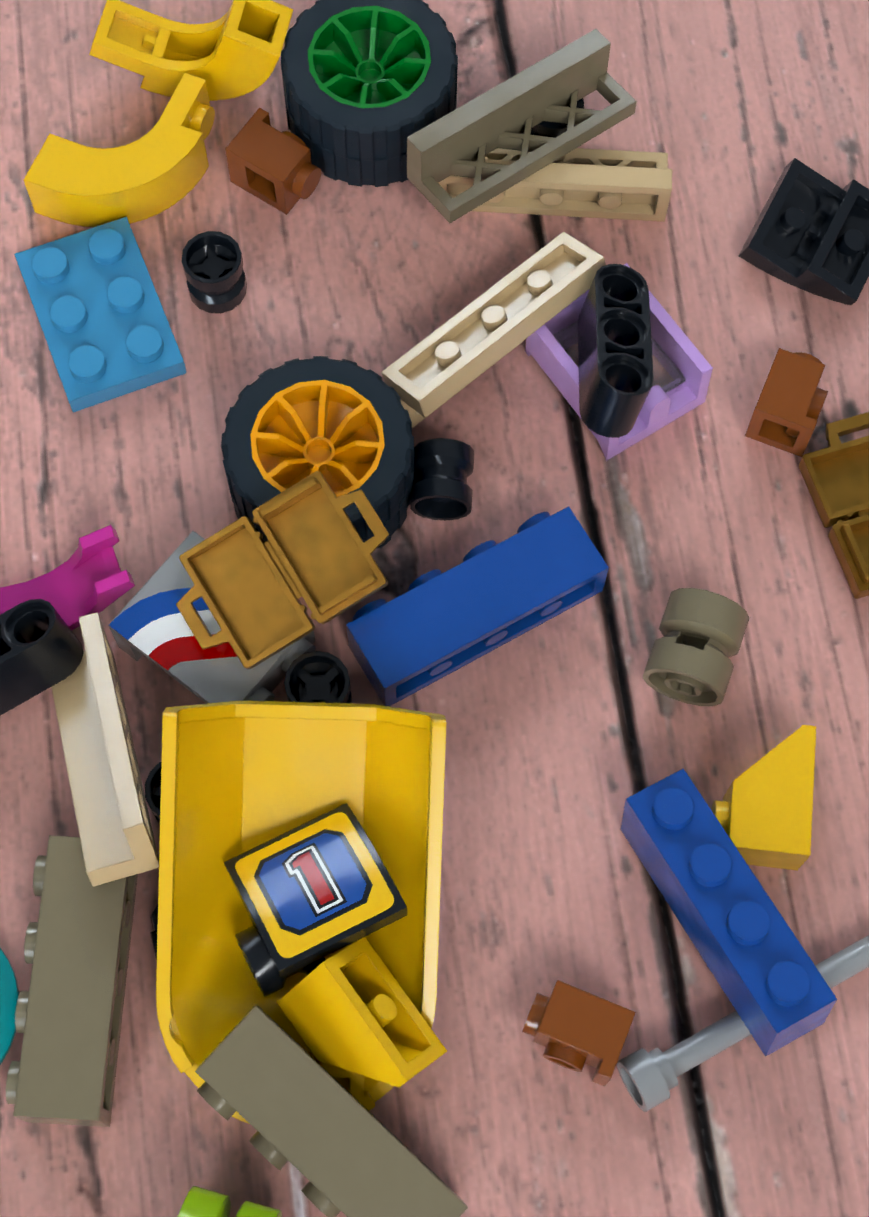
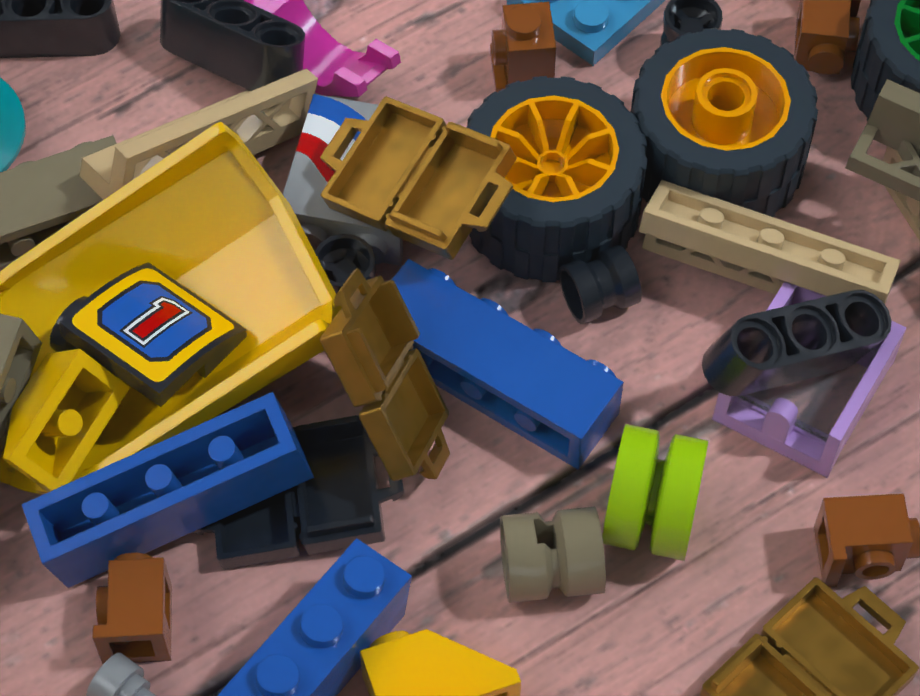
camera: 65 degrees right, 10 degrees down
(152, 418) = (523, 45): none -> dark orange brick
(343, 284) = (726, 118): none -> black wheel
(479, 696) = (373, 361): none -> pearl gold piece
(494, 947) = (167, 490): none -> blue brick
(528, 809) = (332, 506): none -> black piece
(684, 532) = (654, 492): none -> lime wheel

